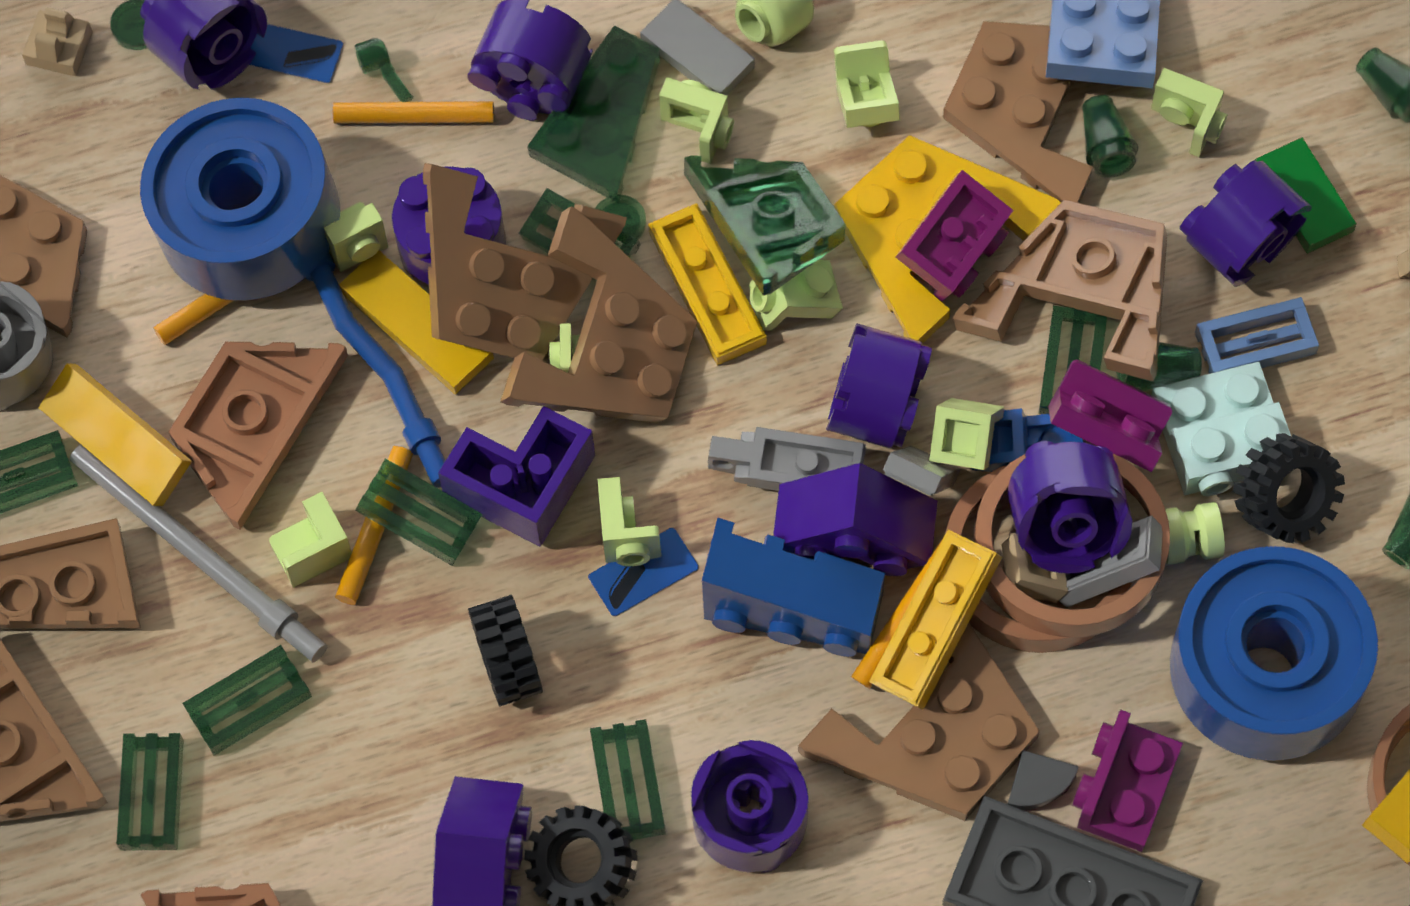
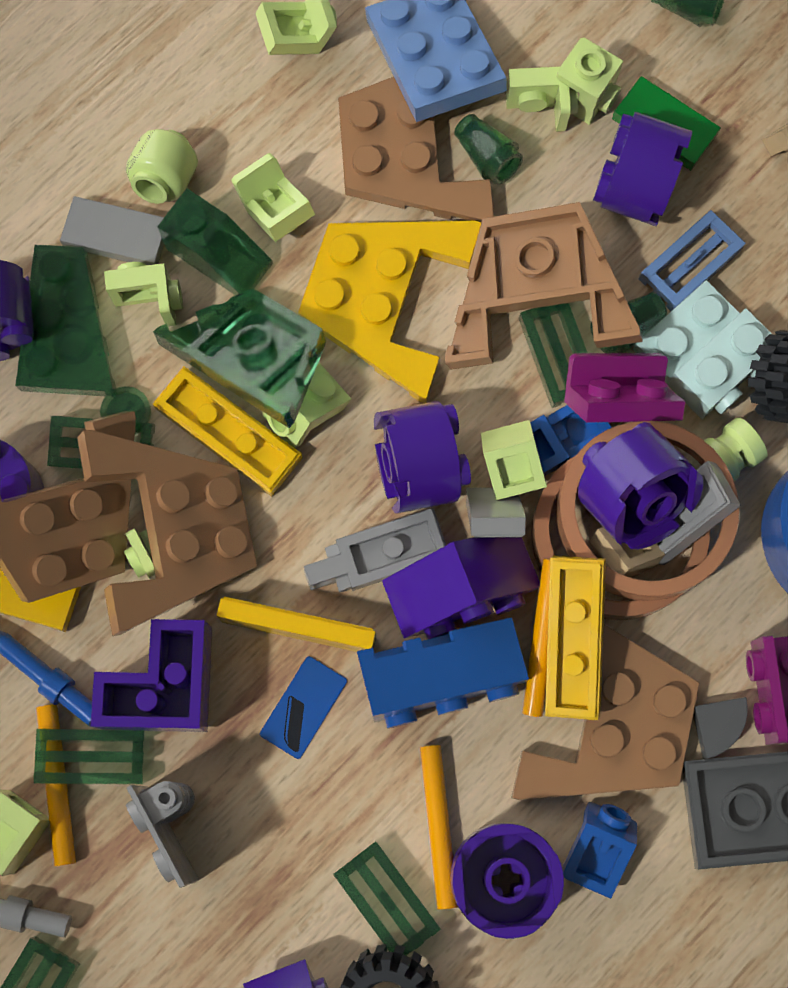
camera: 30 degrees left, 10 degrees up
(463, 581) = (153, 811): none -> light grey hinge
(505, 650) = (228, 850): black tyre -> none
(621, 537) = (261, 675): yellowish green bracket -> none
(670, 482) = (295, 625): none -> yellow tile
(717, 729) = (438, 824): none -> light orange bar
(785, 102) = (213, 244): none -> clear green slope
(857, 832) = (601, 849): none -> blue bracket
(954, 235) = (415, 293): magenta bracket -> none
(1246, 114) = (592, 74): none -> yellowish green bracket

